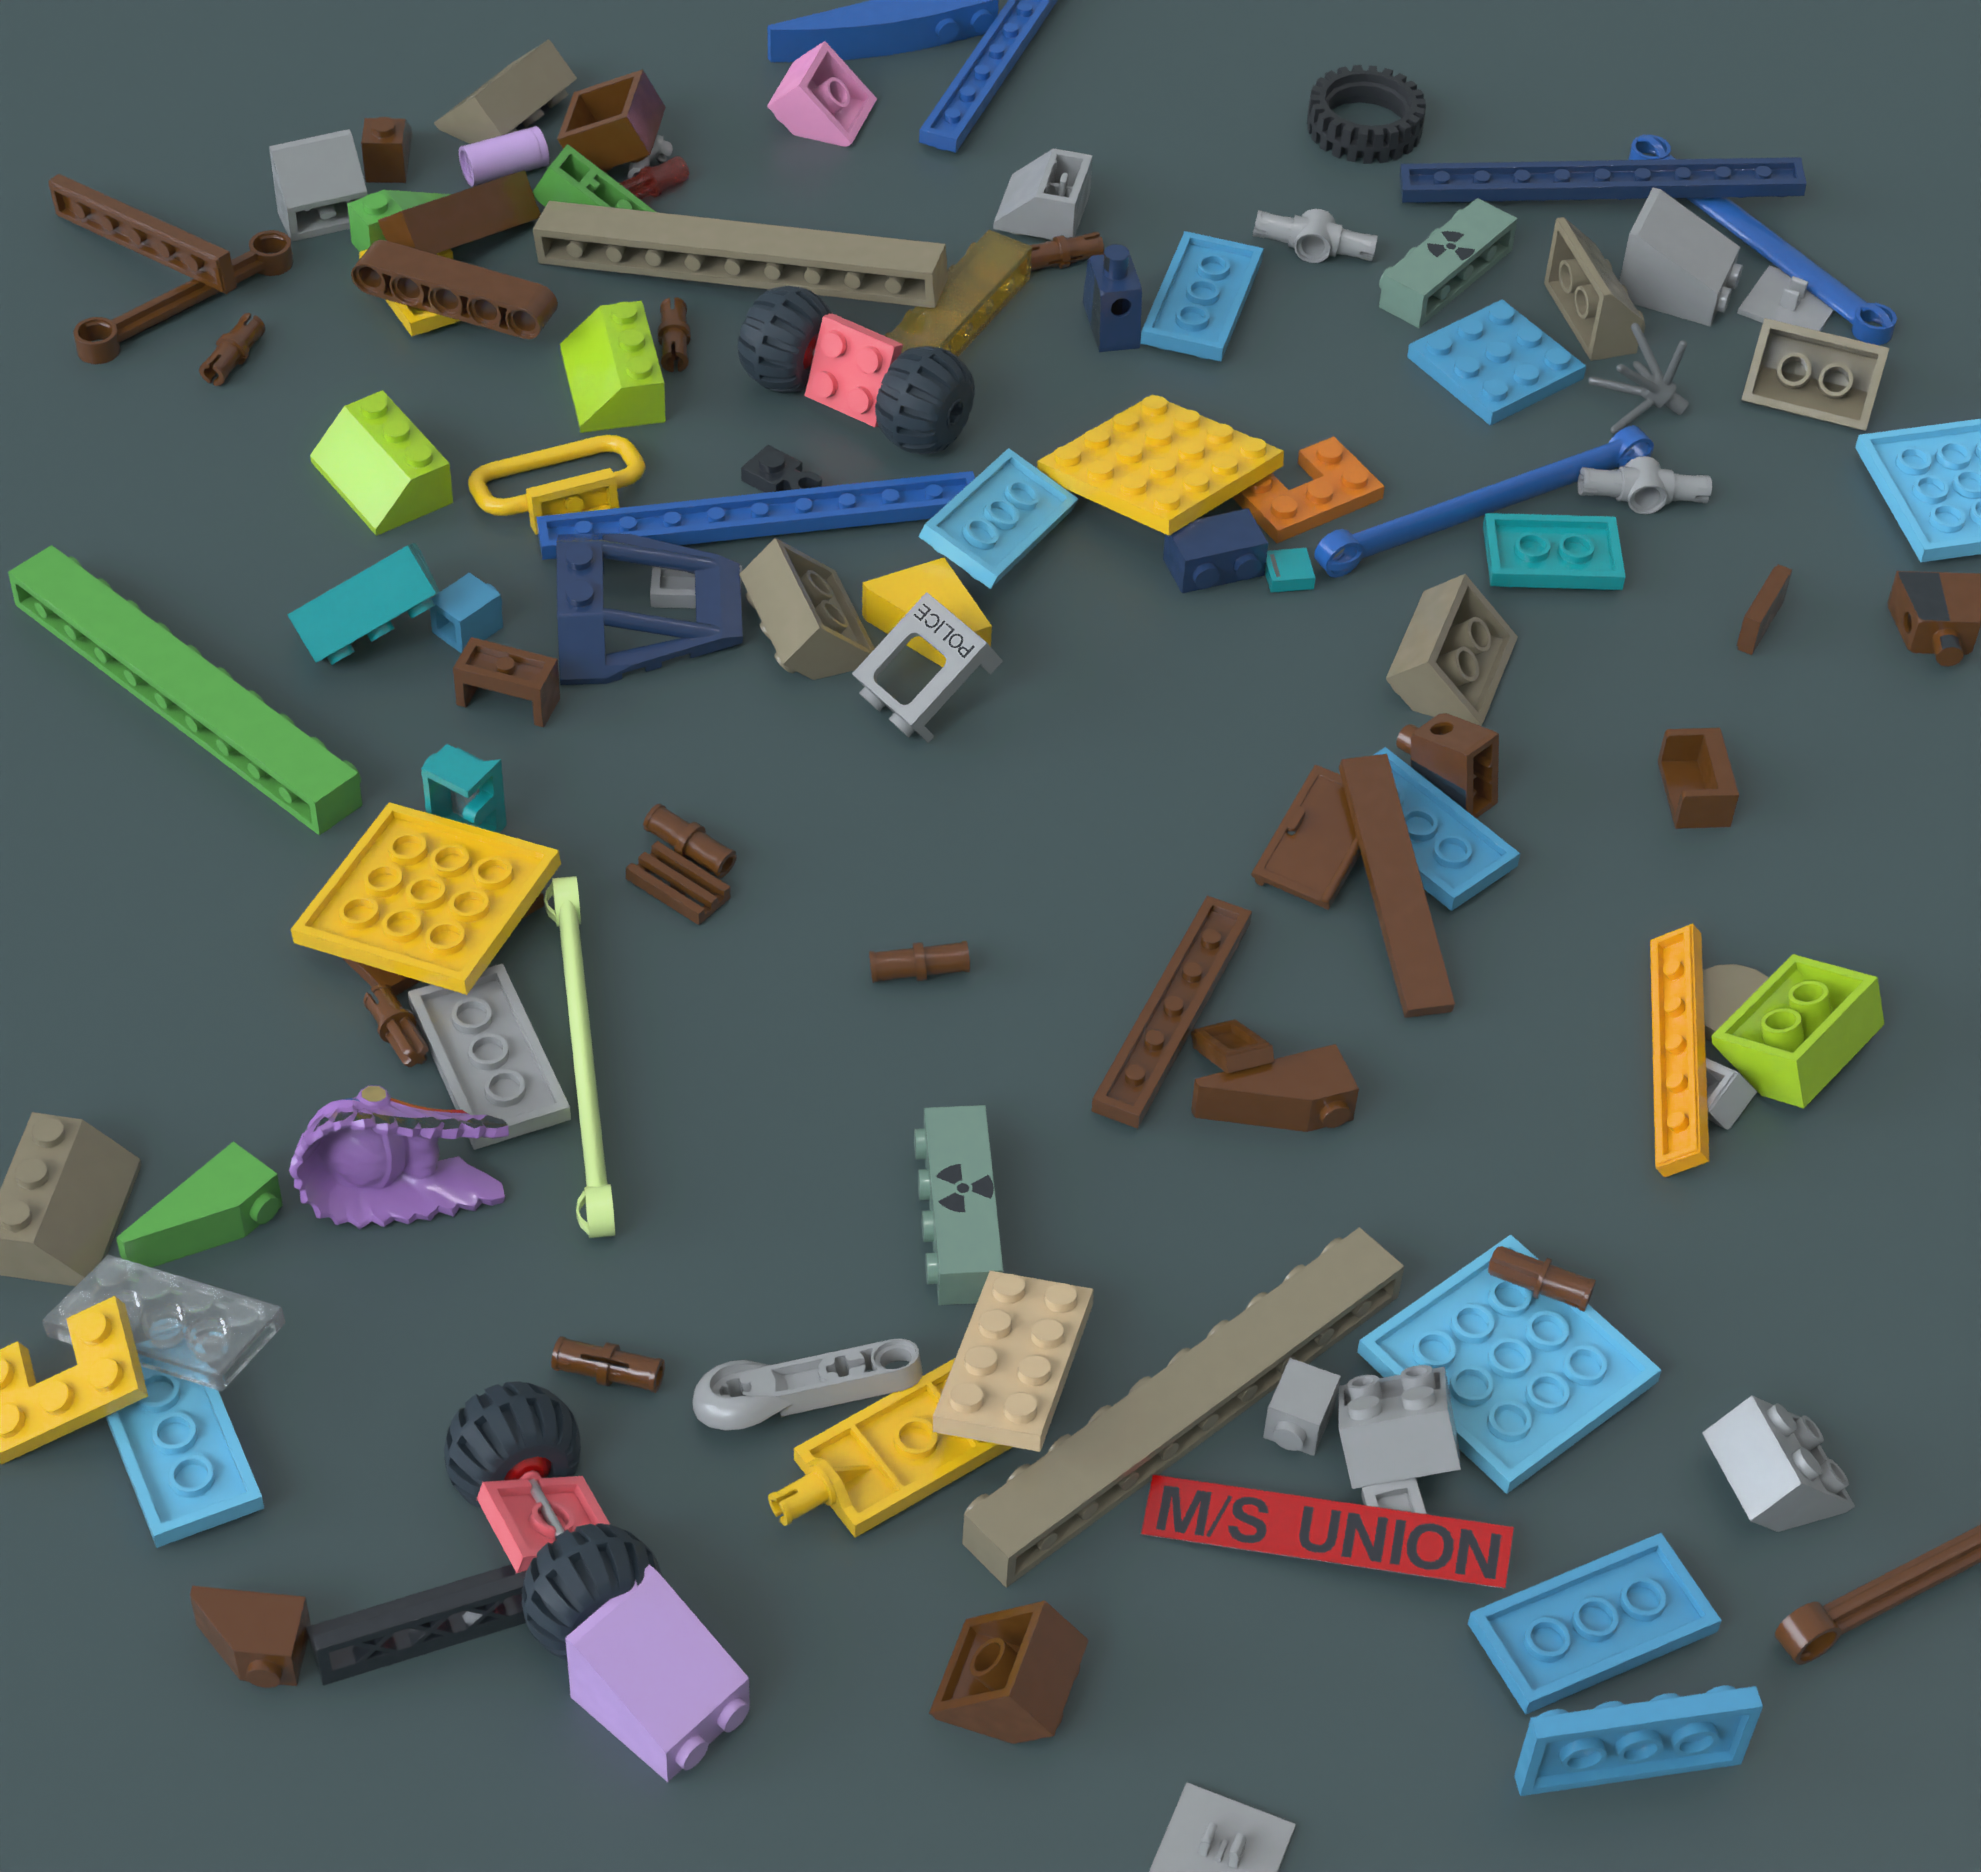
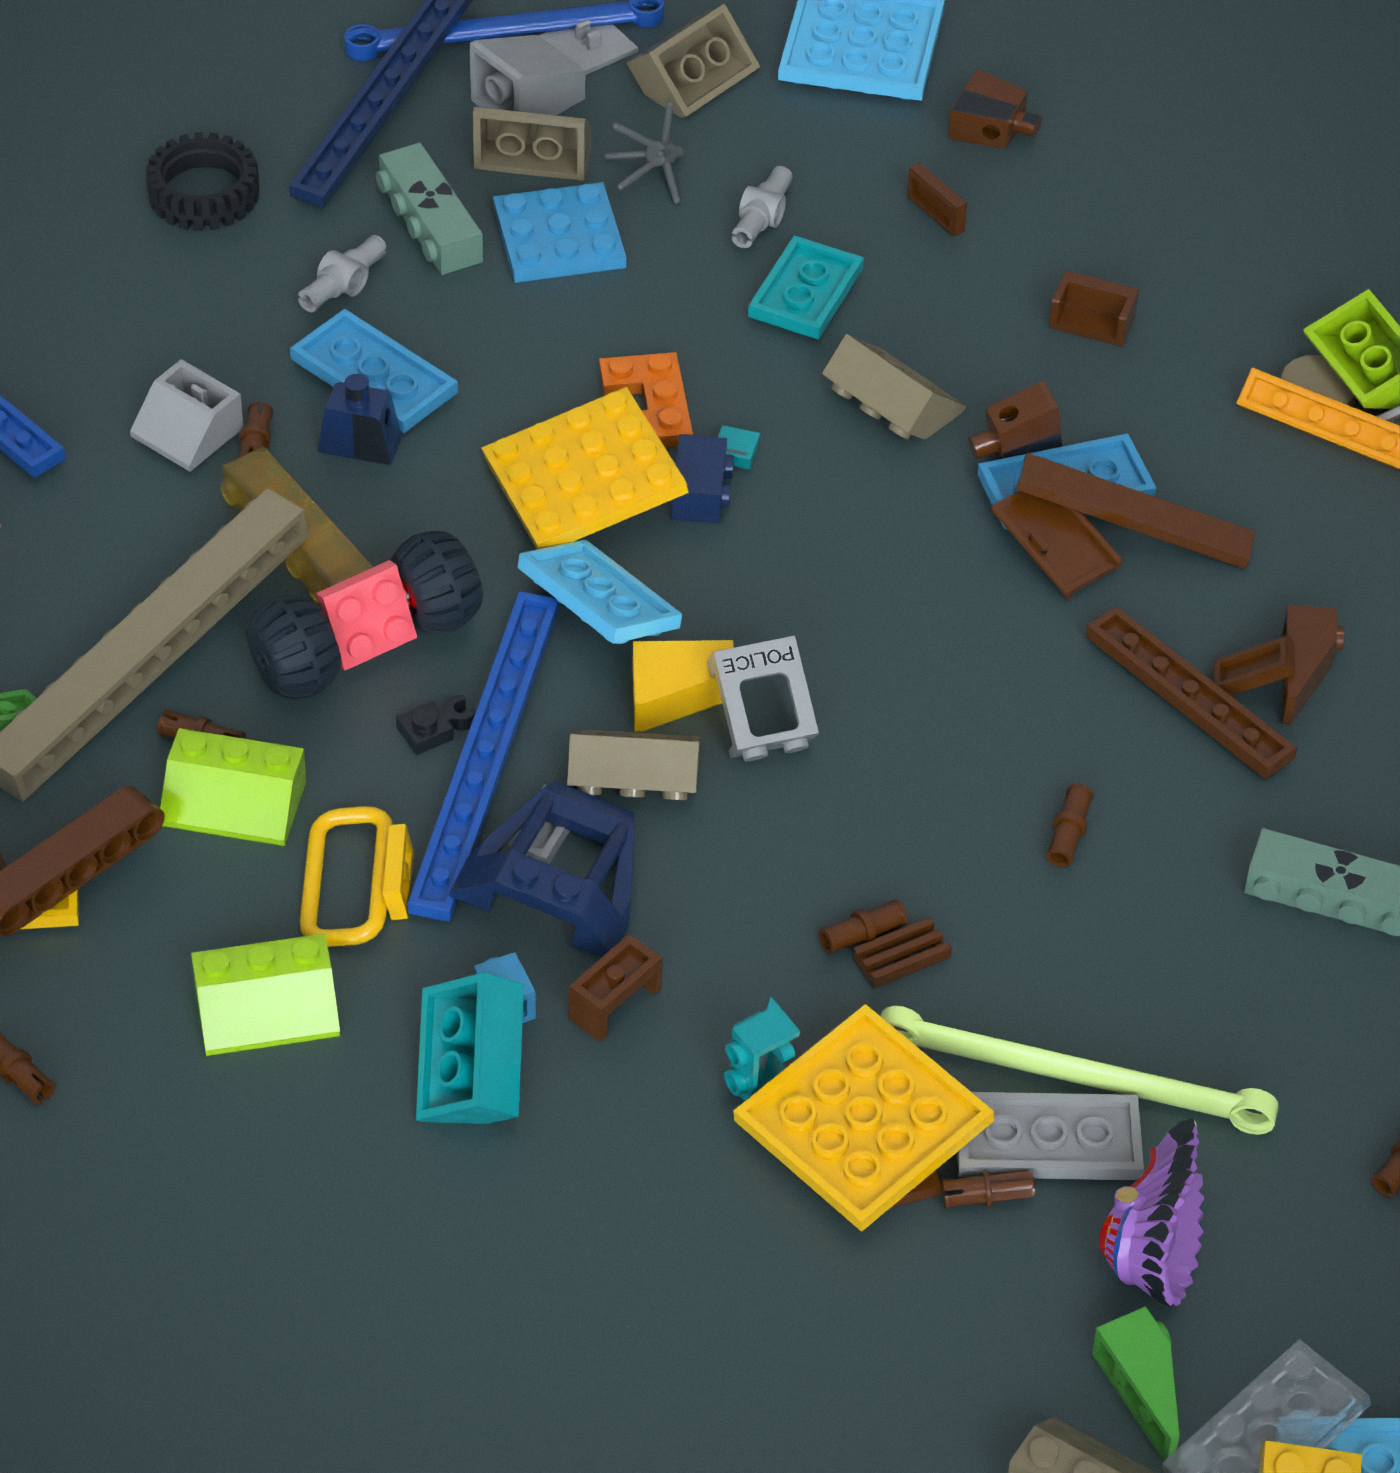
camera: 65 degrees left, 0 degrees up
(187, 689) = (485, 1229): bright green brick -> none
(1476, 503) = (742, 396): blue piece -> none

